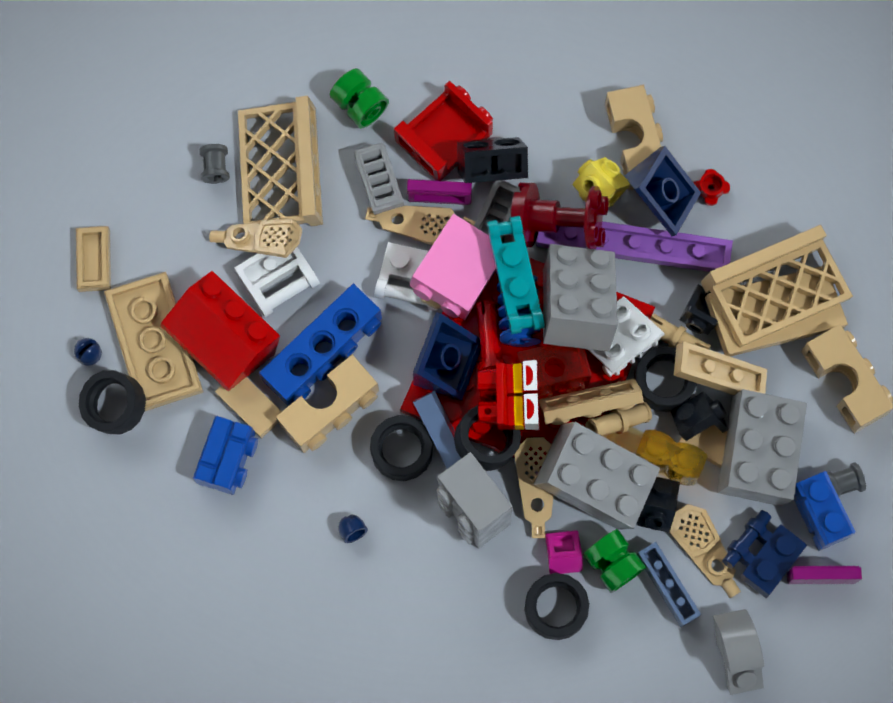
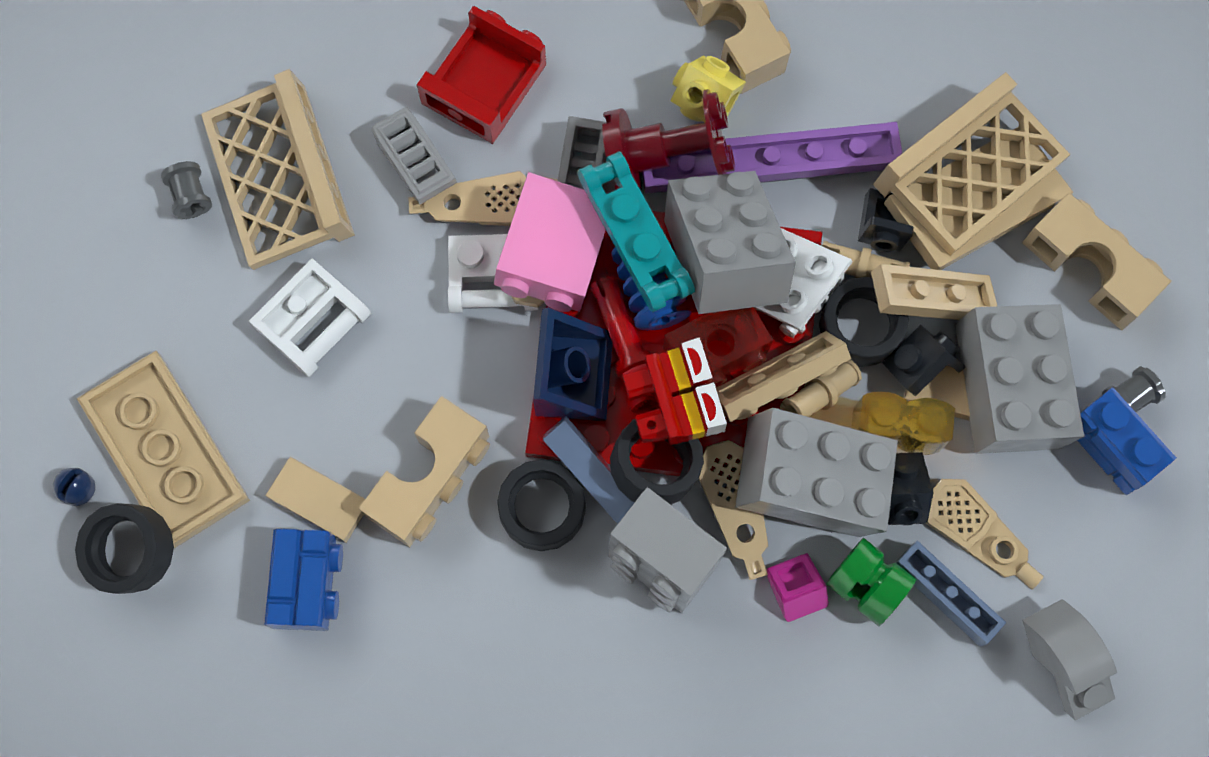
camera: 20 degrees left, 0 degrees up
(93, 259) = (51, 358): tan tile -> none
(220, 331) = (252, 411): red slope -> none
(267, 237) = (282, 270): tan piece -> none
(348, 306) = (420, 332): blue brick -> none
(352, 528) = (503, 633): dark blue hinge -> none
(355, 93) = (356, 56): green wheel -> none
(439, 192) = (499, 153): magenta tile -> none
(492, 160) = (558, 93): black brick -> none
(568, 583) = (846, 659): black tyre -> none
(664, 188) = (792, 77): dark blue slope -> none
(713, 178) = (850, 52): red plate -> none
(773, 559) = (1074, 522): dark blue plate -> none
(824, 575) = (1148, 525): magenta tile -> none

